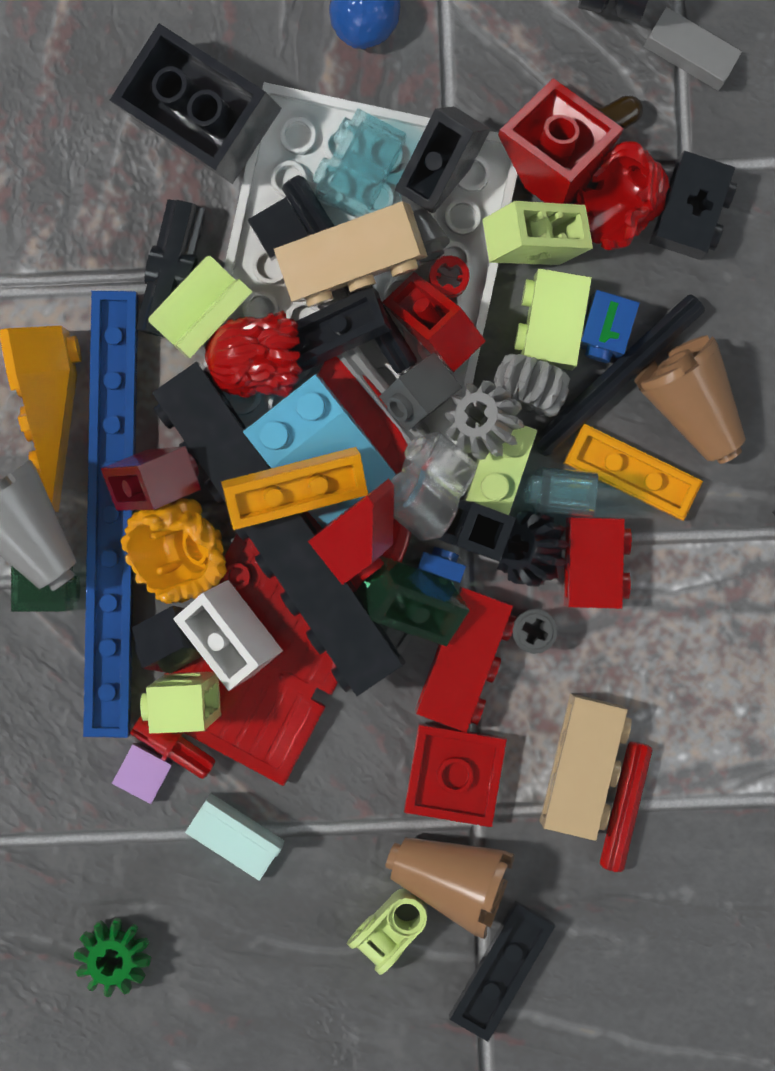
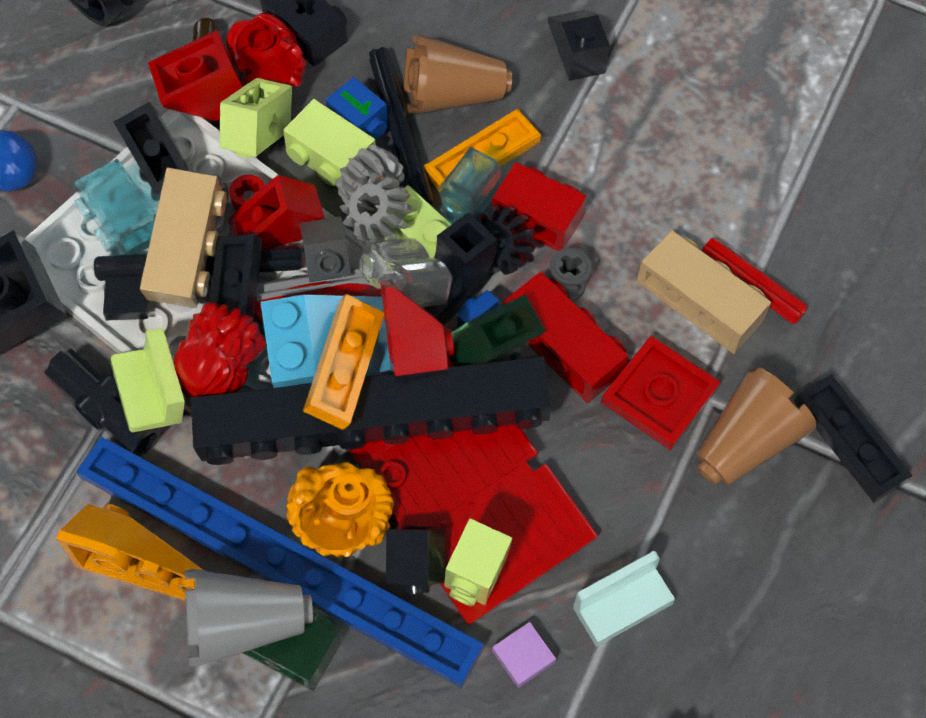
camera: 60 degrees left, 25 degrees down
(152, 478) = (265, 488): dark red brick -> none
(176, 748) = (512, 611): red axle -> none
(227, 634) = (438, 496): white brick -> none
(385, 935) = (776, 515): yellowish green piece -> none

